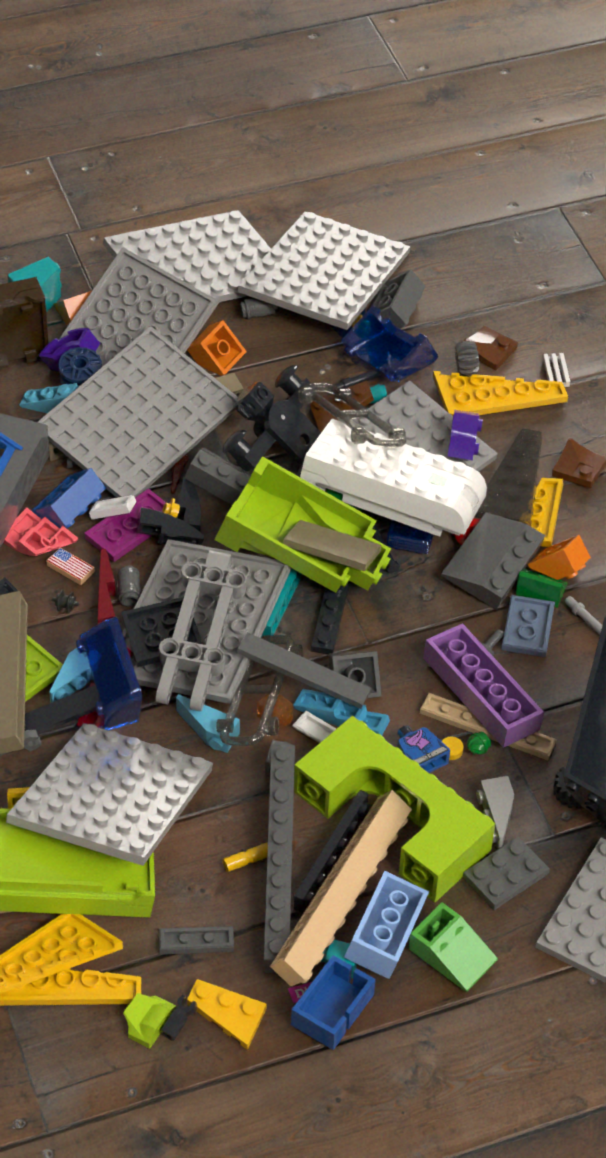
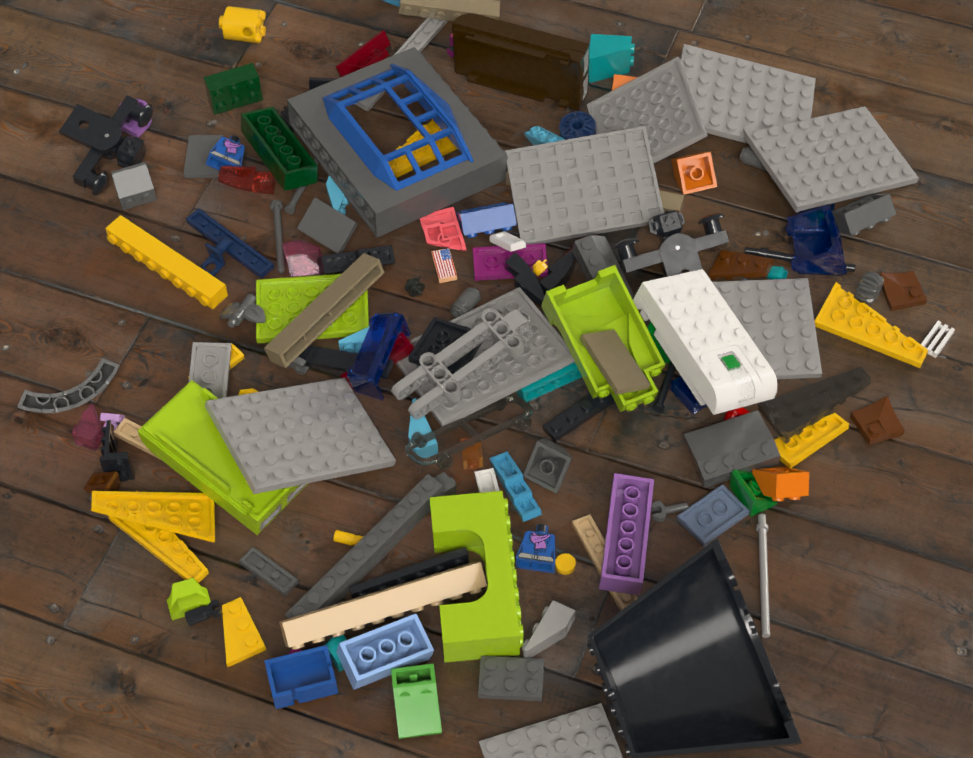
camera: 45 degrees right, 5 degrees up
(76, 338) = (593, 107): dark purple brick -> none
(106, 588) = (447, 294): dark red slope -> none
(304, 670) = (510, 438): dark grey tile -> none
(358, 434) = (702, 291): clear smoke bar -> none
(463, 435) = (801, 342): dark purple brick -> none
(478, 743) = (584, 573): green plate -> none

